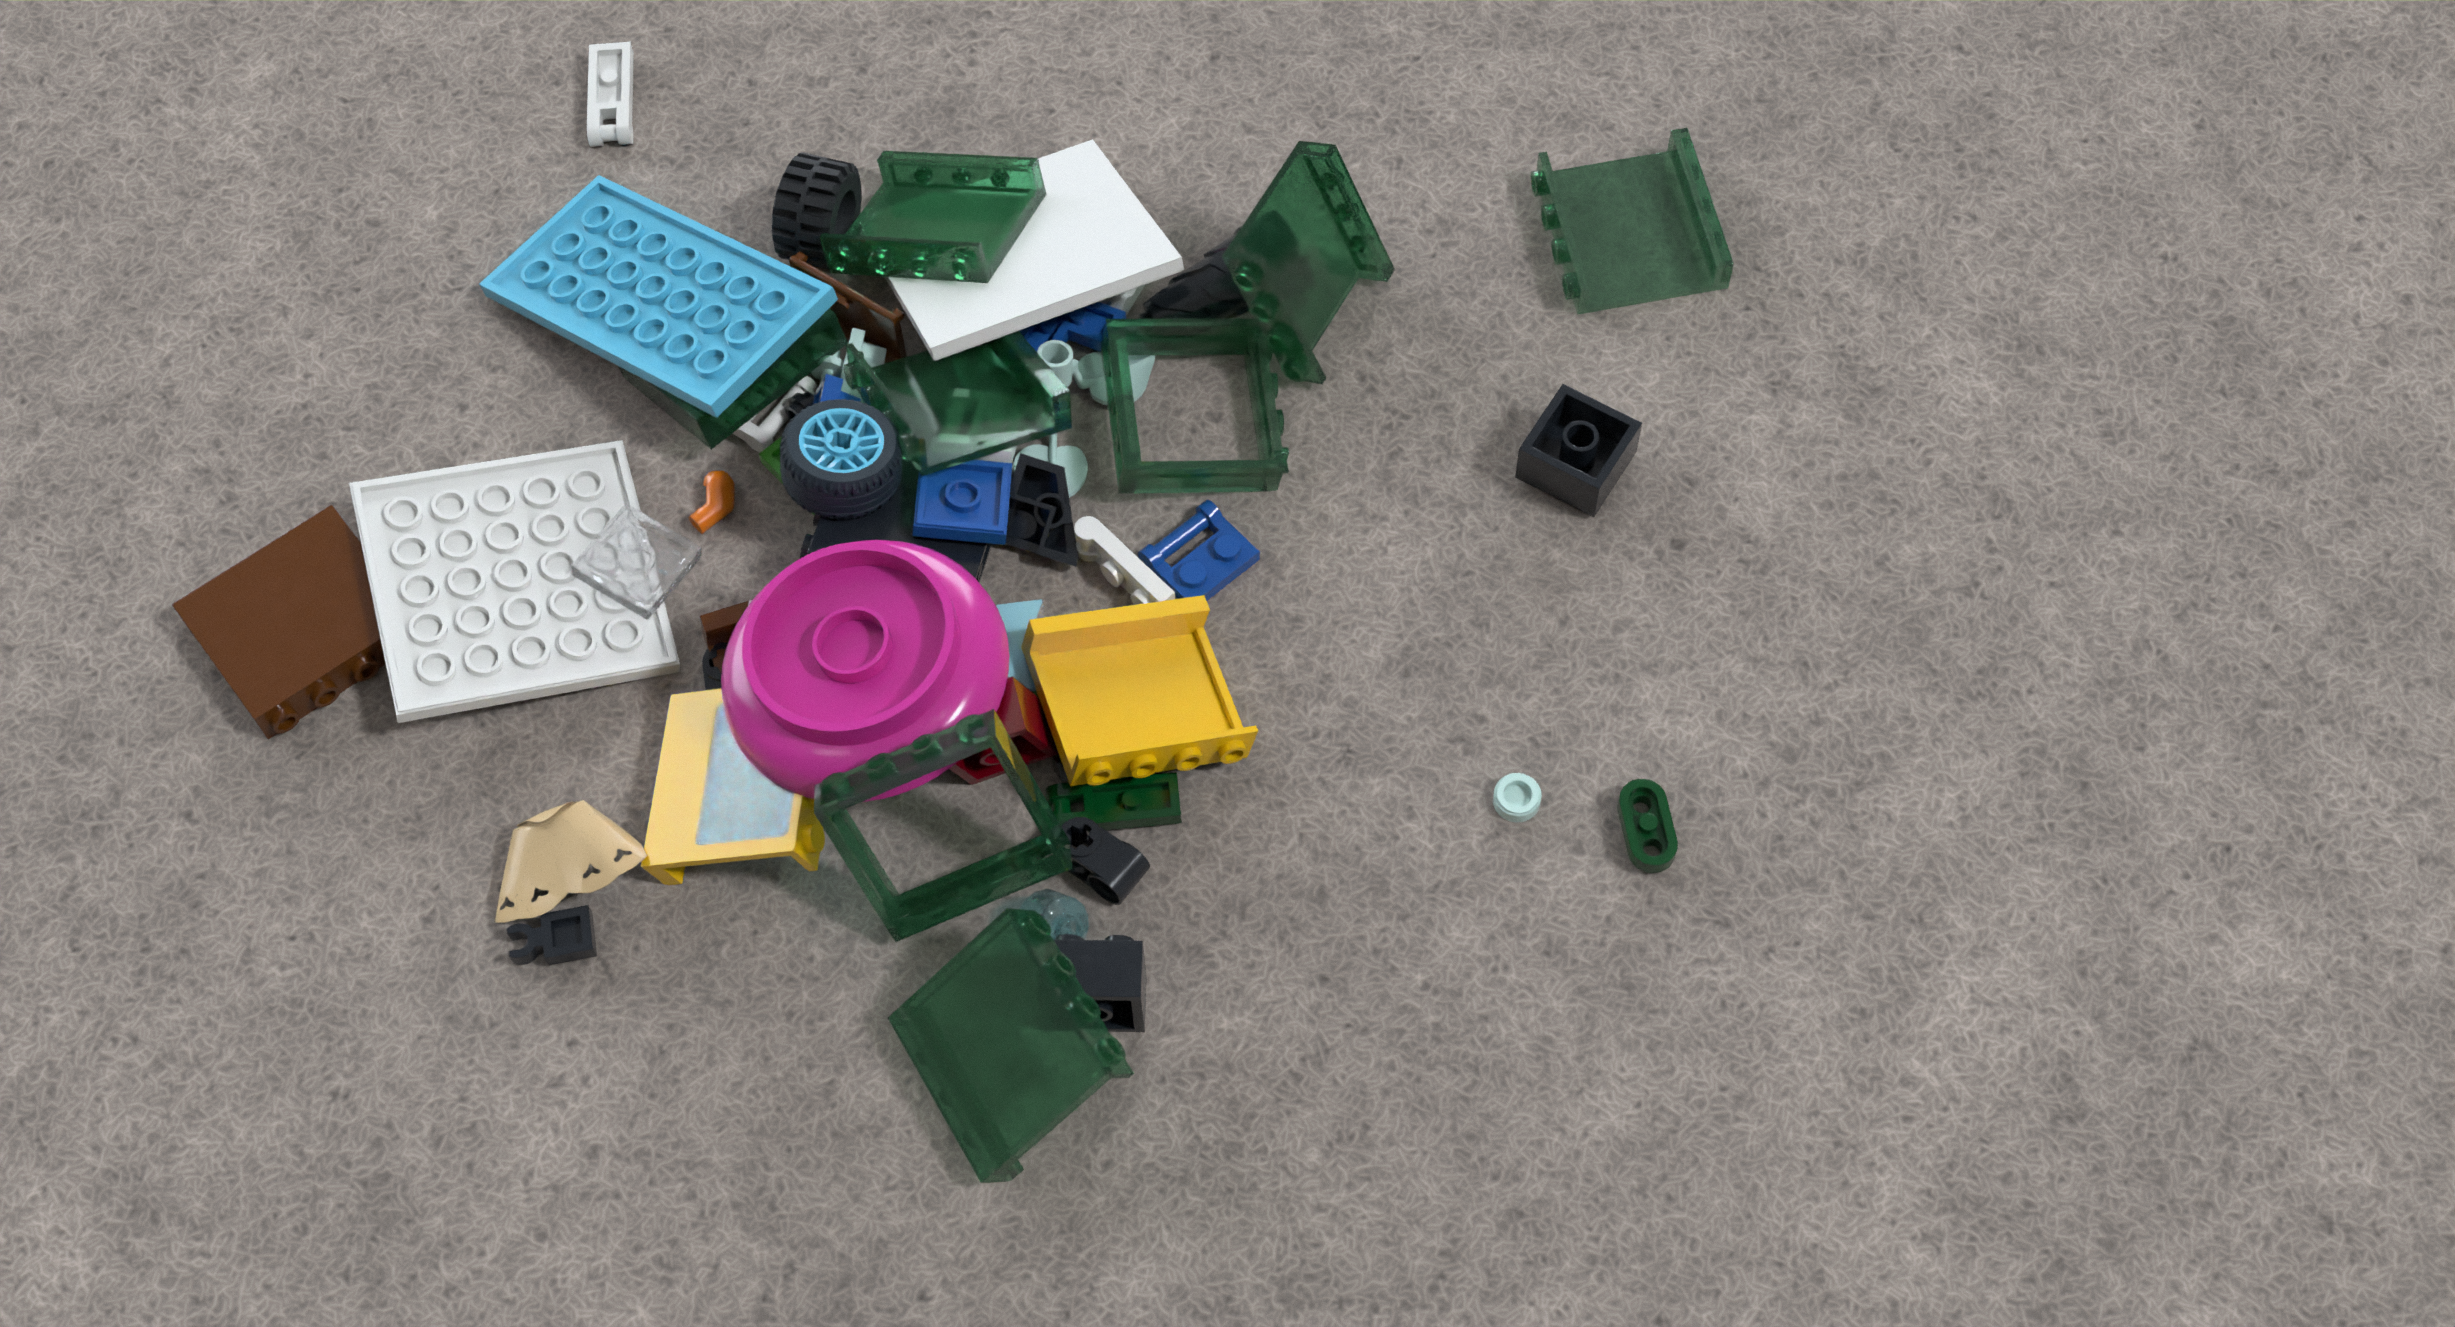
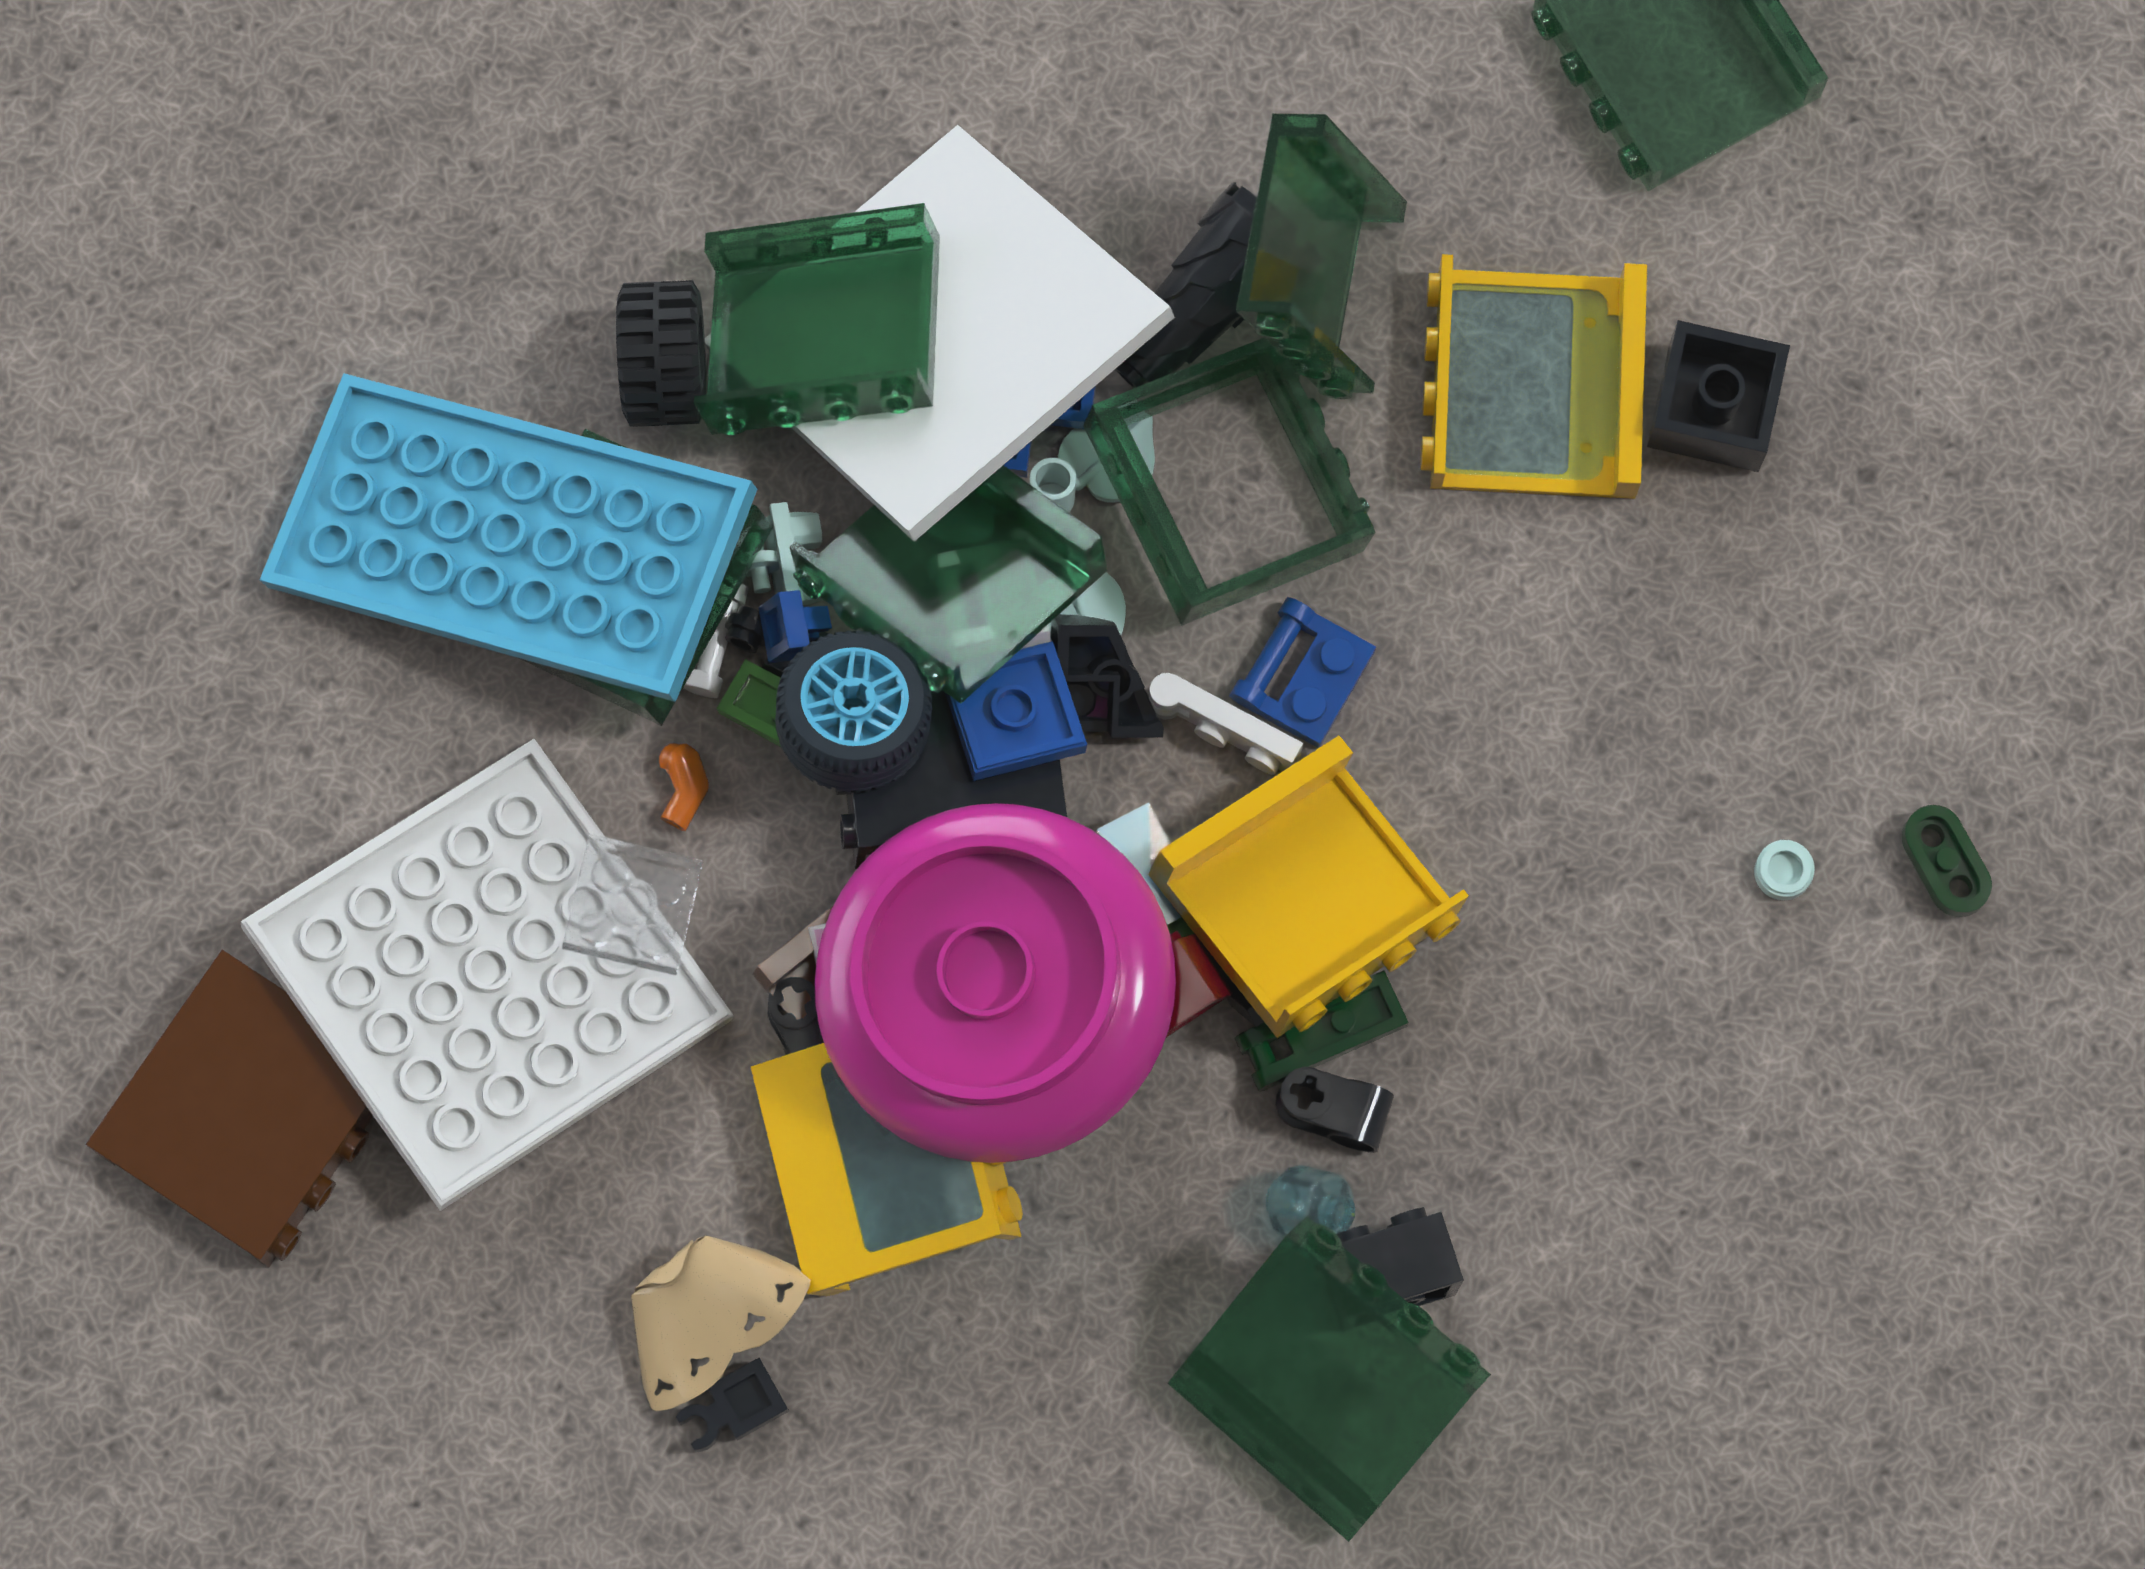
camera: 20 degrees left, 15 degrees up
(610, 93) = (302, 243): white plate -> none
(859, 312) = (773, 482): reddish brown door -> none
(965, 887) = (1198, 1195): clear green window -> none
(1444, 412) = (1535, 382): none -> clear light blue panel

